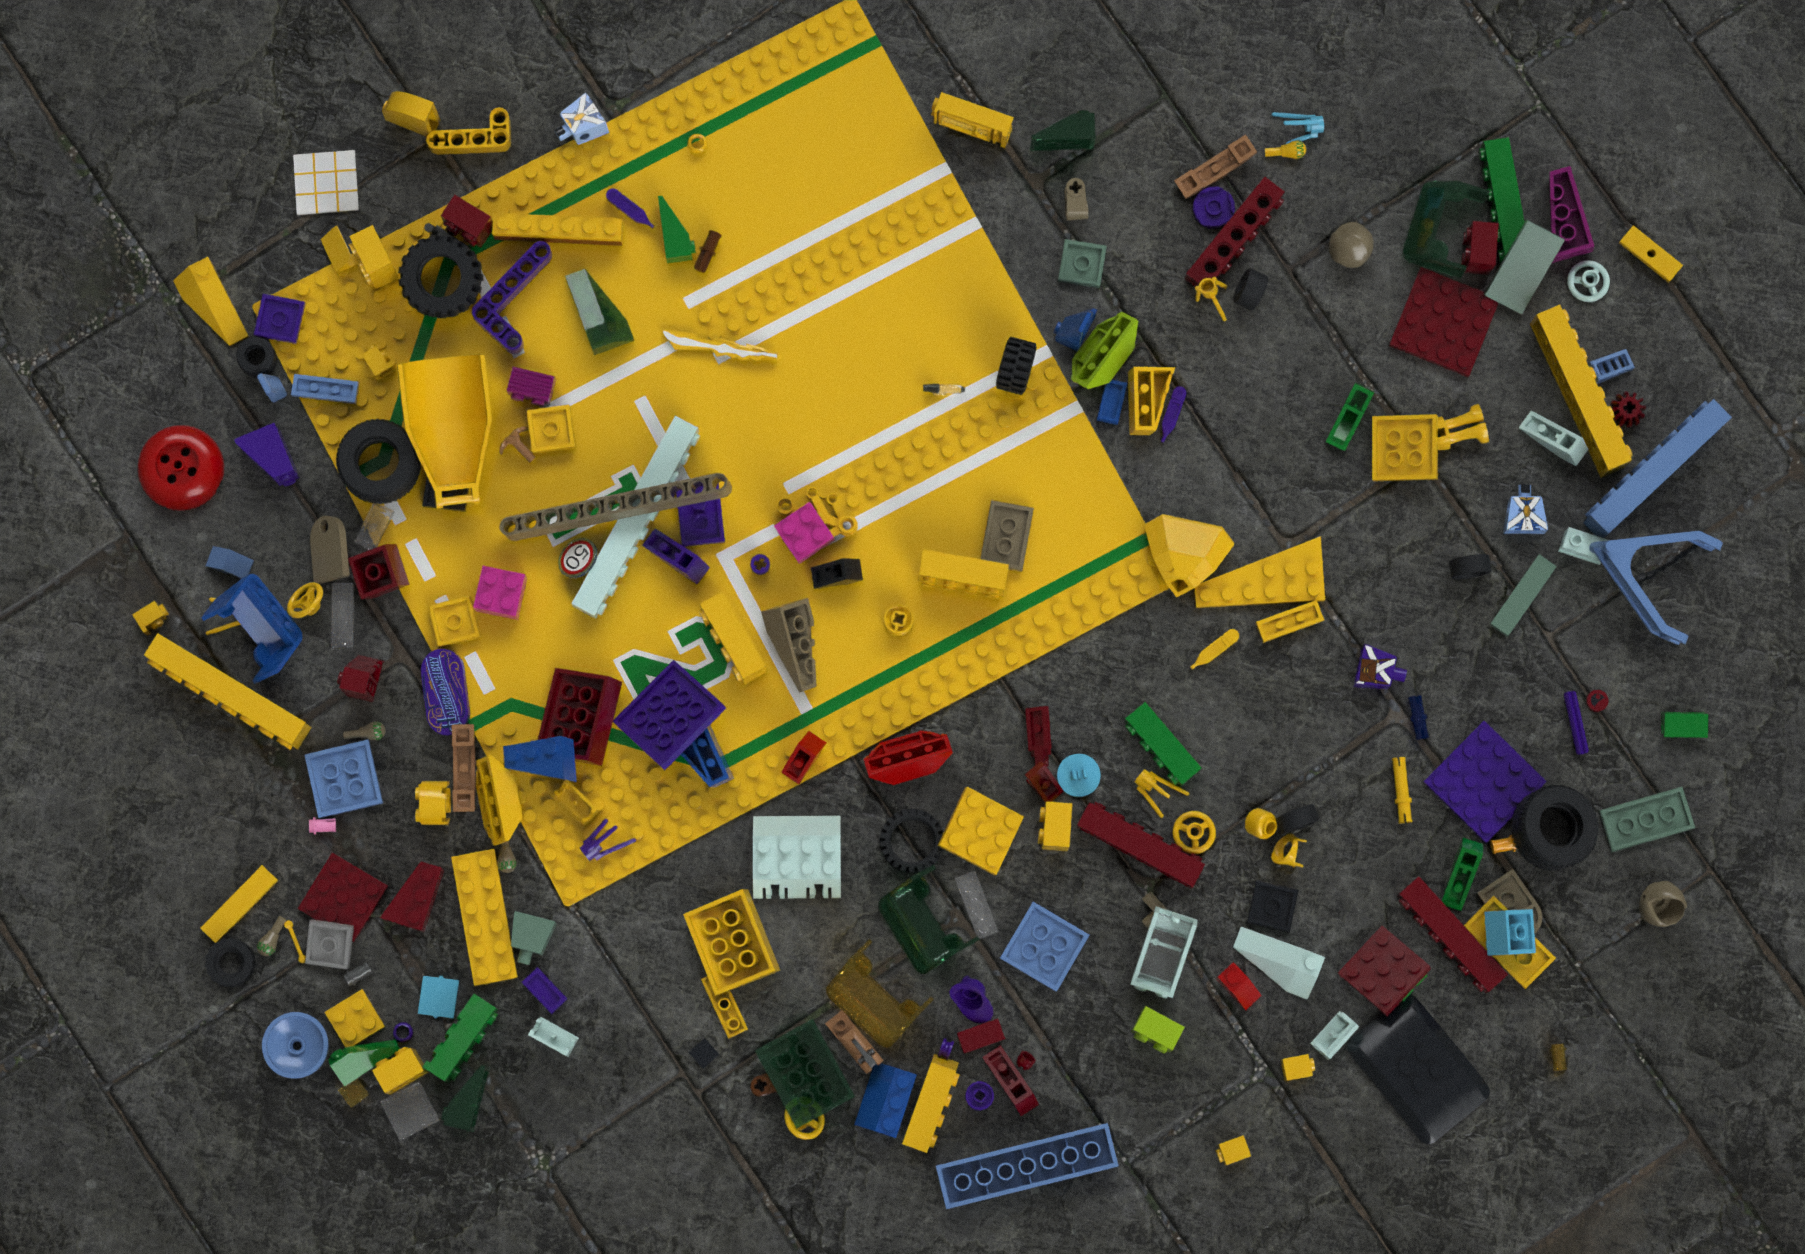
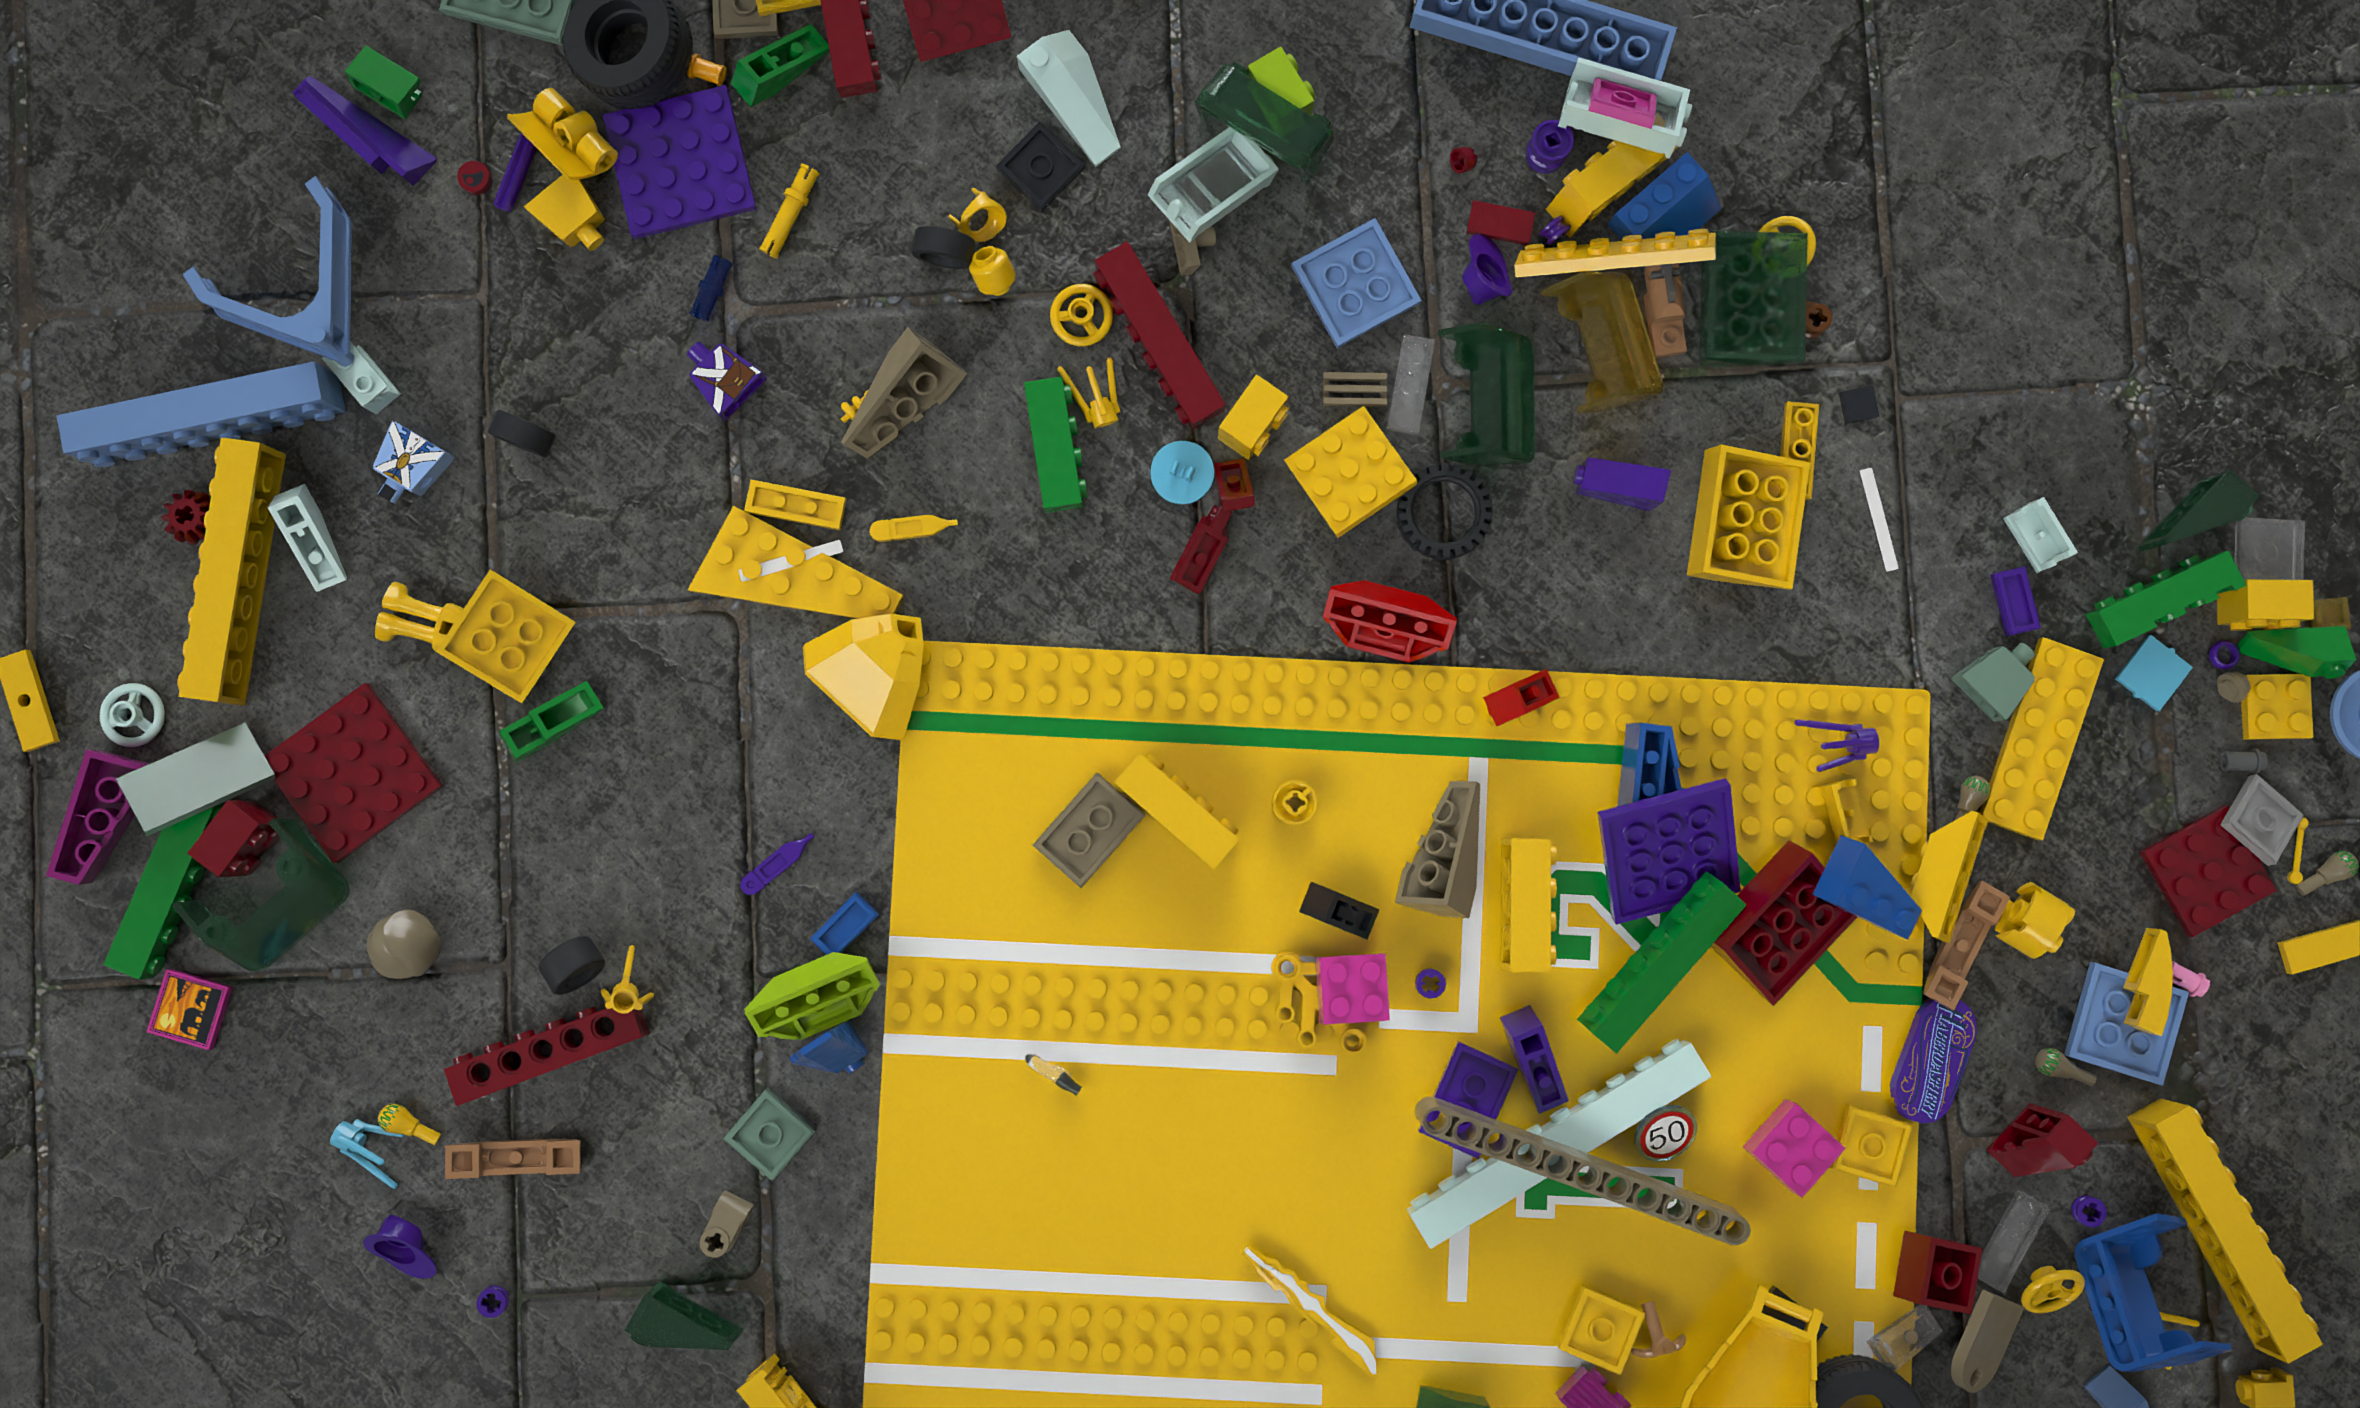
camera: 150 degrees left, 5 degrees up
(301, 664) = (2093, 1221): none -> dark purple bush
(346, 805) = (2151, 982): none -> yellow slope
(388, 1014) = (2233, 686): none -> dark tan plate
(416, 898) = (2120, 811): dark red wedge -> none
(636, 651) = (1661, 962): none -> green brick
(652, 992) = (1879, 519): none -> white sticker
(796, 855) = (1601, 582): light aqua slope -> none
(819, 917) = (1622, 483): none -> dark purple slope
(902, 1045) = (1604, 255): none -> yellow plate
(948, 1139) = (1670, 114): none -> light aqua door
(951, 1137) = (1623, 102): none -> dark pink tile
(1010, 1080) = (1498, 144): dark red slope -> none
(1016, 365) = (941, 1045): black tyre -> none
(1023, 875) = (1355, 377): none -> dark tan tile
(1146, 397) = (796, 902): yellow wedge -> none
(1155, 1000) = (1266, 119): none -> clear green windscreen
(1180, 78) = (485, 1308): none -> dark purple bush
(1213, 207) = (552, 1105): dark purple tile -> none
(1239, 986) = (1144, 95): red slope -> none
(1247, 84) = (401, 1246): none -> dark purple piece
(1269, 730) = (906, 385): none -> dark tan wedge
(1276, 582) = (781, 563): none -> white sticker
(1289, 701) = (851, 410): none -> yellow hair
(1448, 141) = (189, 1009): none -> tile
(1523, 595) = (480, 363): sand green tile -> none
(1527, 712) = (569, 212): none -> yellow torso
(1558, 752) = (565, 137): none -> yellow panel
(1601, 375) = (153, 581): medium blue slope -> none
(1679, 687) = (364, 133): none -> dark purple wedge

